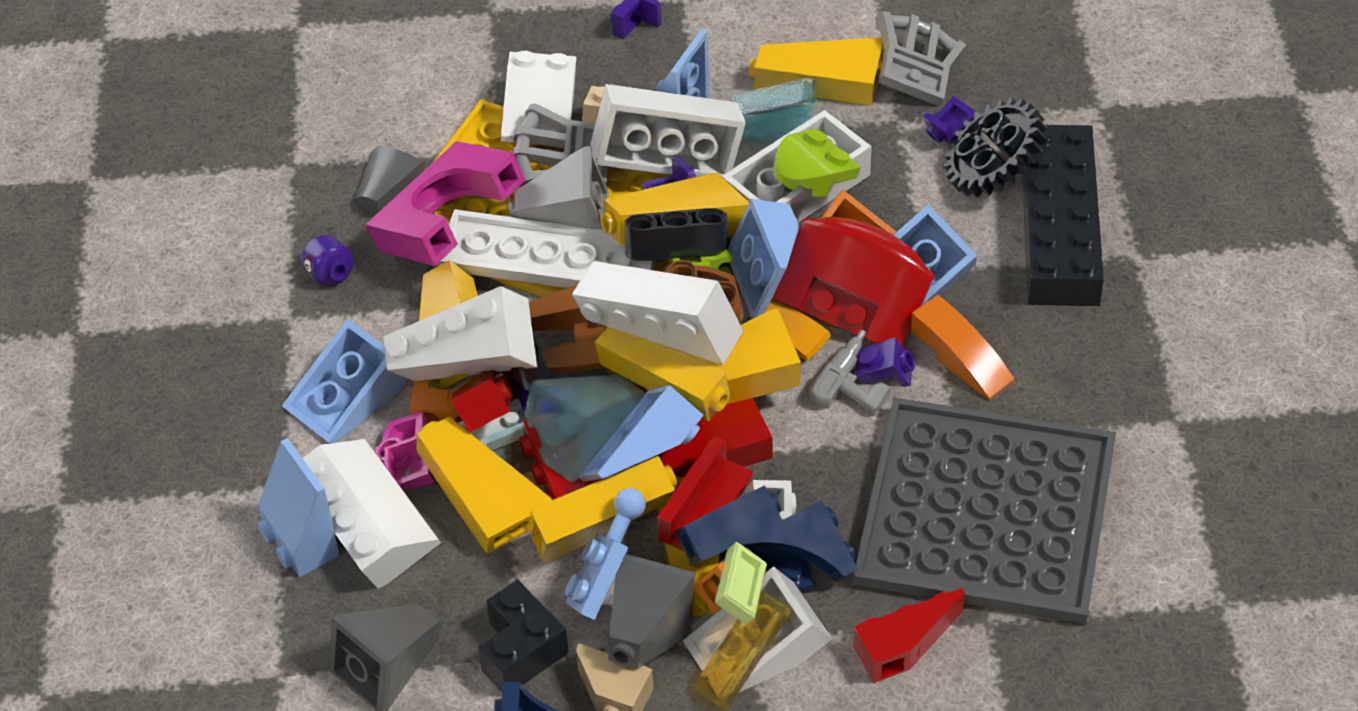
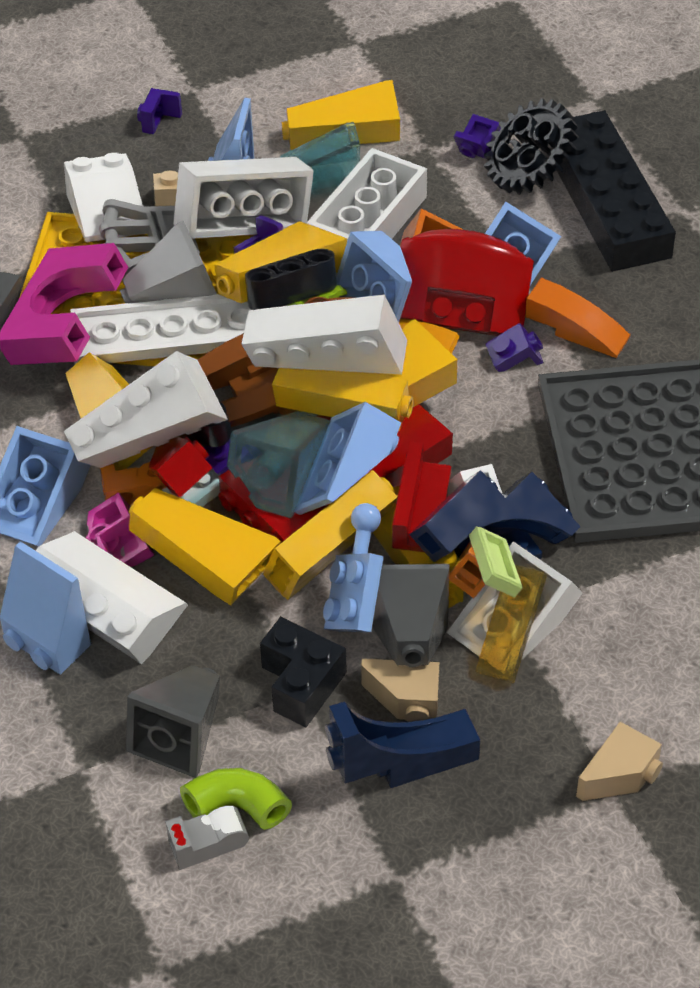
camera: 20 degrees left, 0 degrees up
(812, 162) = (382, 190): lime slope -> none
(837, 378) = (482, 371): light grey piece -> none
(901, 638) = (639, 578): red slope -> none
(911, 71) = (420, 101): light grey plate -> none

